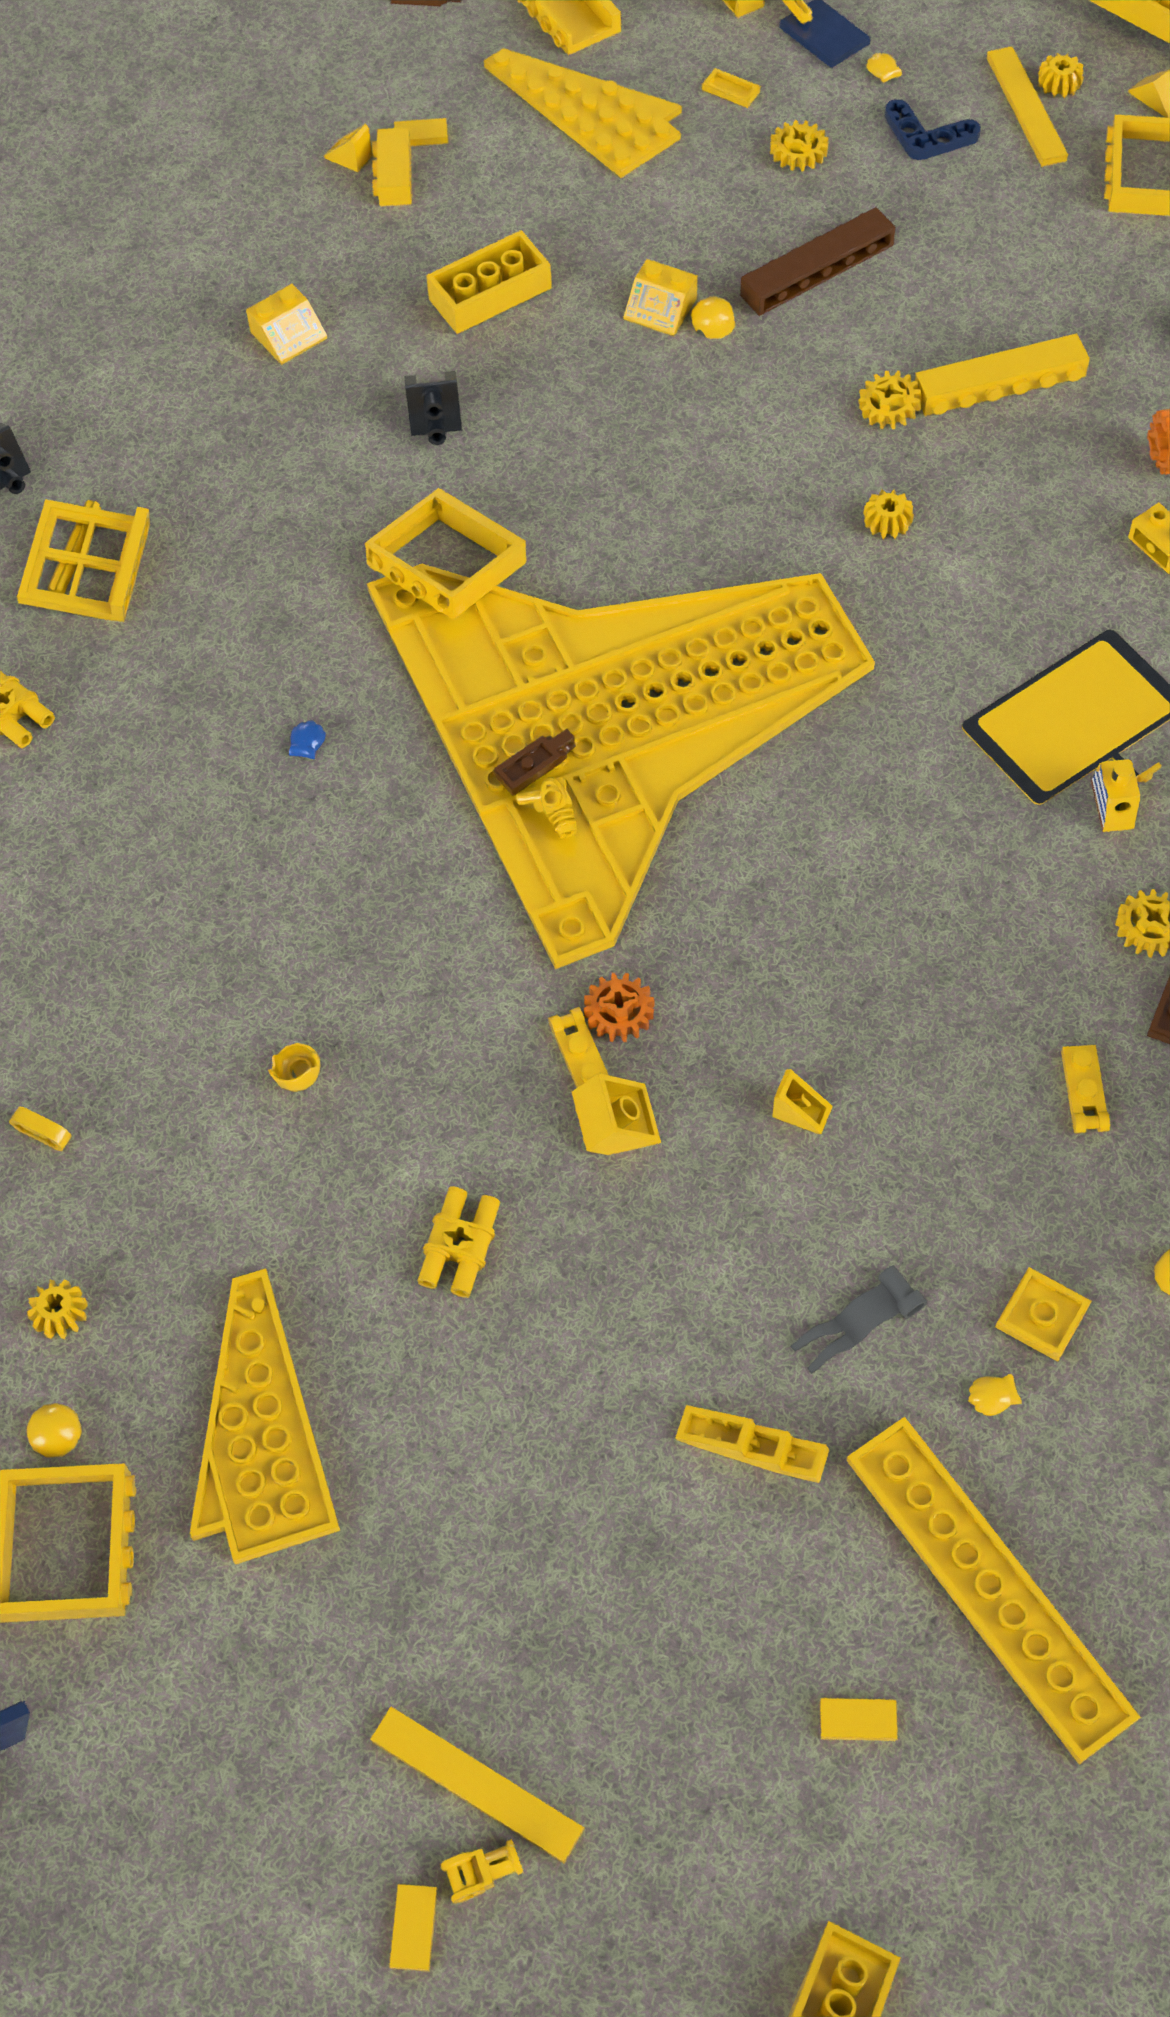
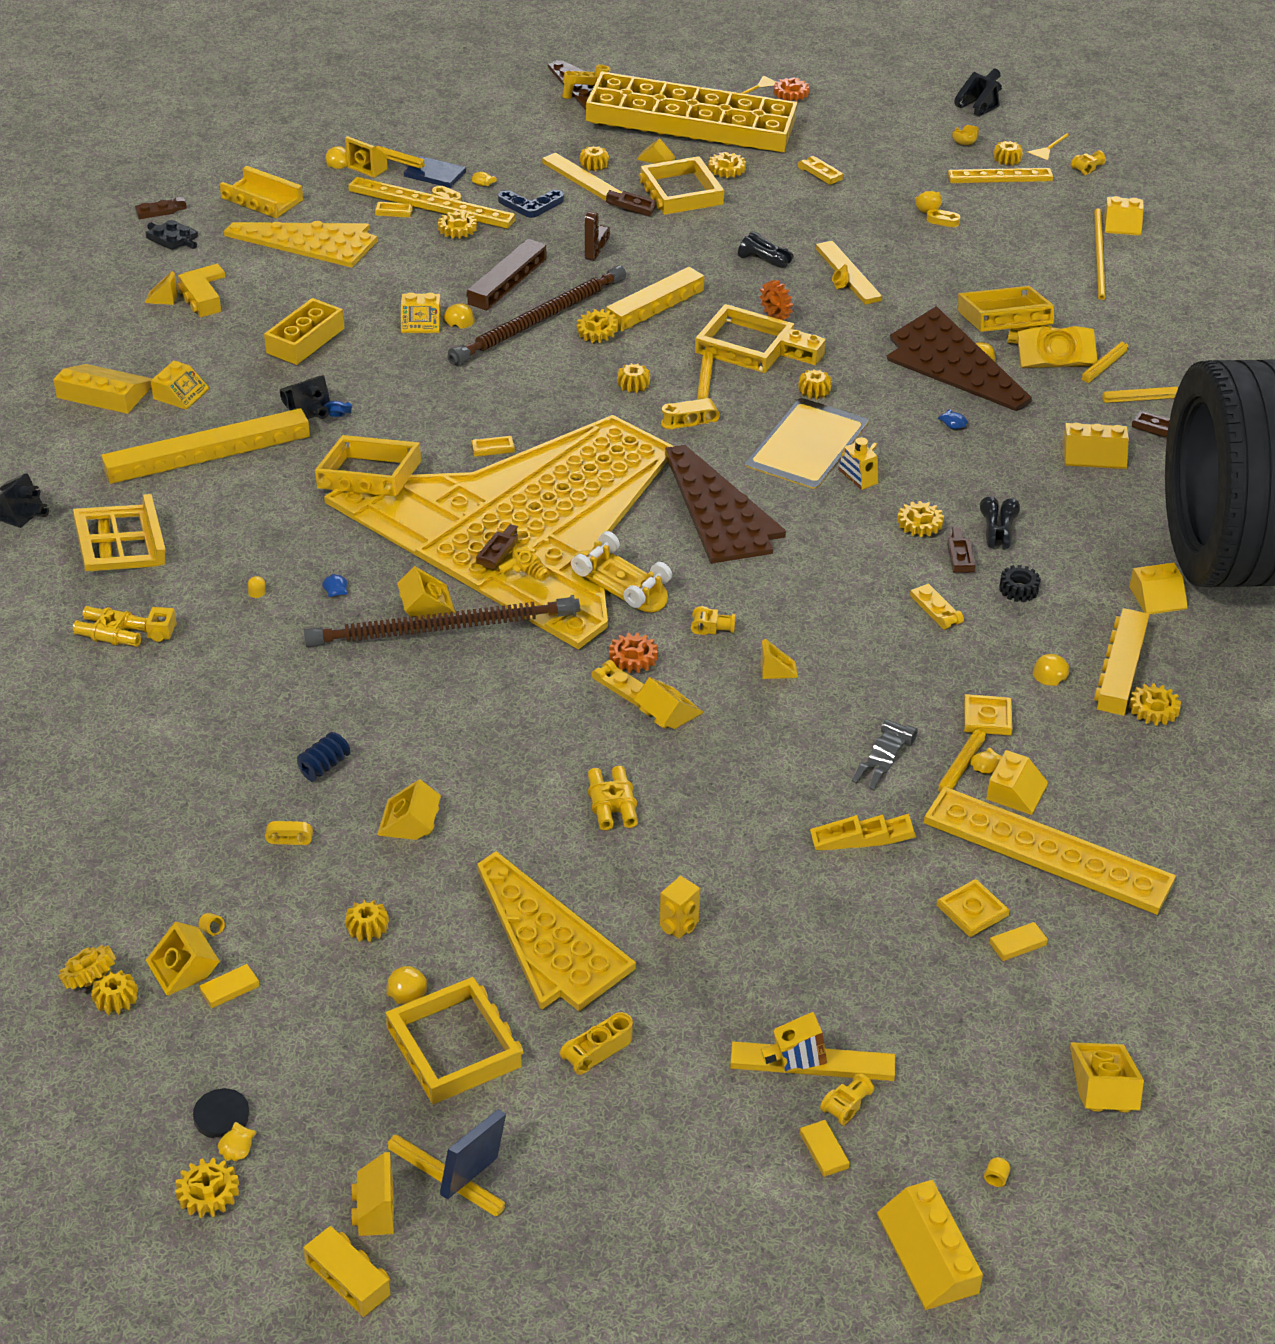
camera: 30 degrees left, 20 degrees down
(61, 725) = (159, 629): none -> yellow brick
(139, 1023) = (322, 755): none -> dark blue piece
(195, 290) = (101, 387): none -> yellow slope
(198, 1160) = (410, 812): none -> yellow slope
(204, 1632) = (598, 1042): none -> yellow piece
(208, 706) = (256, 587): none -> yellow piece
(268, 441) = (205, 445): none -> yellow brick
(300, 1059) = (445, 746): yellow hair -> none
(403, 860) = (561, 606): none -> reddish brown hose
(405, 803) = (424, 594): none -> yellow slope
(415, 46) = (172, 234): none -> black plate
(431, 1472) = (679, 907): none -> yellow brick
(451, 1767) = (797, 1044): none -> torso
(464, 432) = (338, 408): none -> blue animal
(635, 568) = (493, 446): none -> yellow tile
(671, 872) = (622, 578): none -> yellow piece
(751, 992) = (711, 621): none -> yellow connector
(788, 92) = (431, 202): none -> yellow plate
(818, 350) = (536, 315): none -> reddish brown hose
(819, 82) = (446, 192): none -> yellow beam
(827, 1637) = (972, 907): none -> yellow plate
(877, 810) = (723, 516): none -> reddish brown wing
(931, 607) = (689, 413): none -> yellow piece
(960, 1379) = (962, 760): none -> yellow axle
(967, 237) = (595, 236): none -> reddish brown beam
(993, 544) = (705, 375): none -> yellow axle
(1011, 1455) = (1016, 783): none -> yellow slope
(1059, 520) = (737, 354): none -> yellow window
(1069, 178) = (631, 202): none -> reddish brown hinge
(1141, 614) = (814, 384): none -> yellow gear

